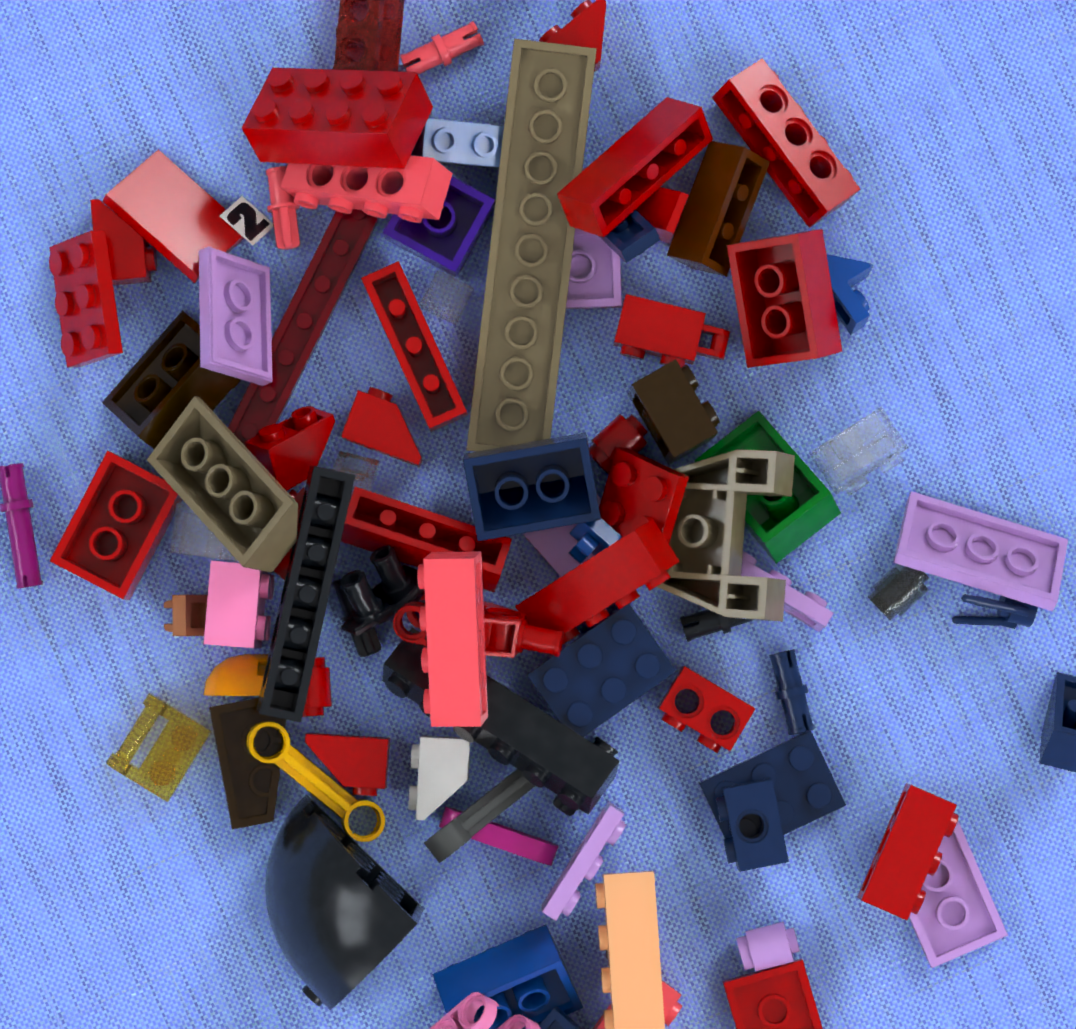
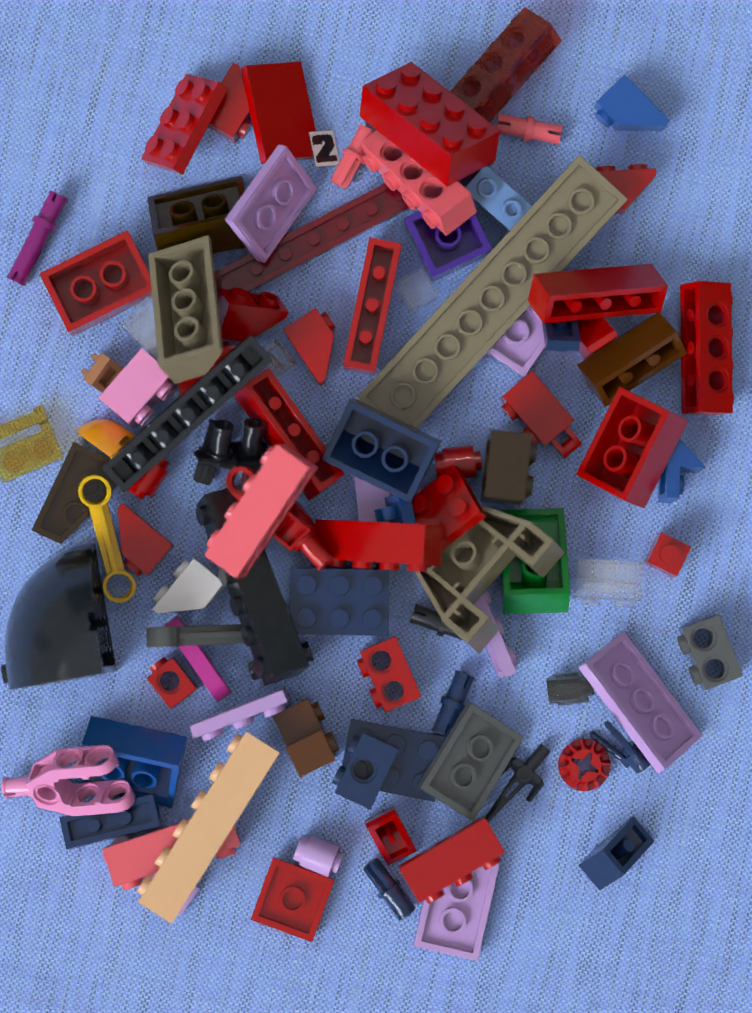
camera: 35 degrees right, 0 degrees up
(502, 892) = (185, 687): none -> red brick
(667, 836) = (305, 736): none -> reddish brown brick
(825, 872) = (390, 835): none -> red slope
(852, 738) = (470, 761): none -> dark grey plate
(864, 928) = (389, 889): none -> dark blue axle
(898, 381) = (667, 554): none -> red brick
(915, 711) = (524, 774): none -> black piece
(954, 645) = (579, 750): none -> red gear
(1018, 439) = (717, 648): none -> dark grey brick

